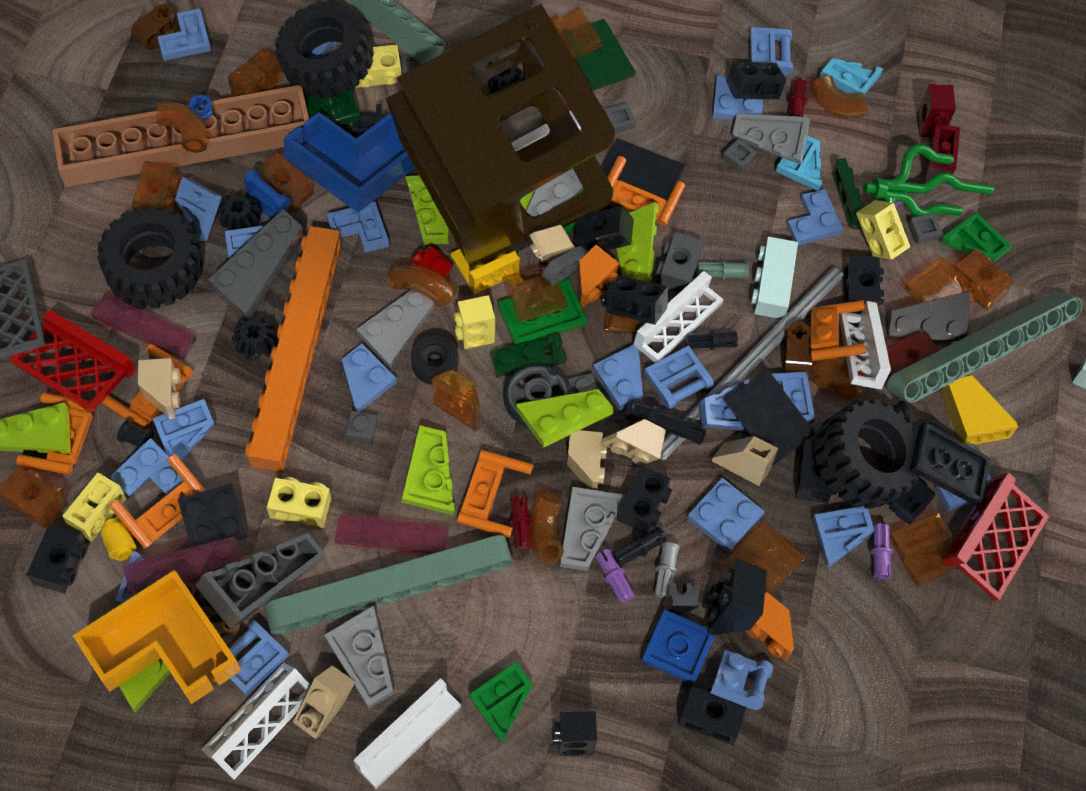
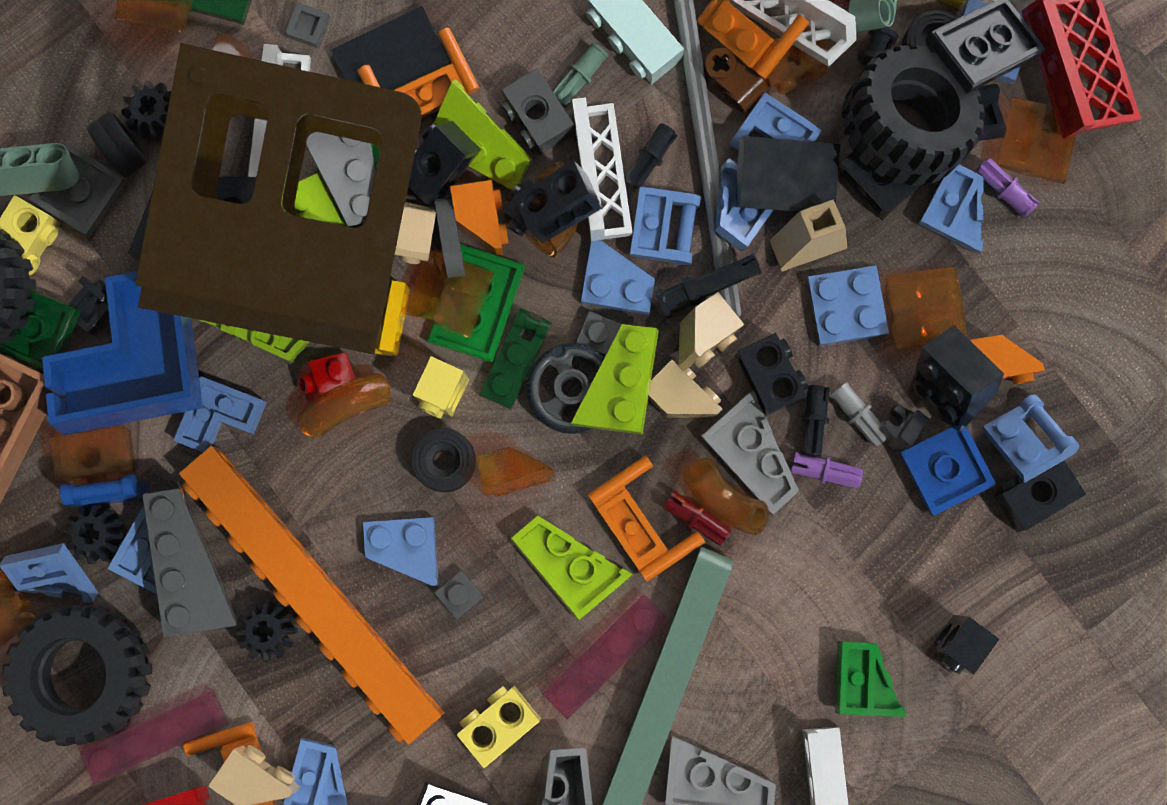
camera: 40 degrees left, 20 degrees up
(393, 327) = (368, 469): light grey wing -> none

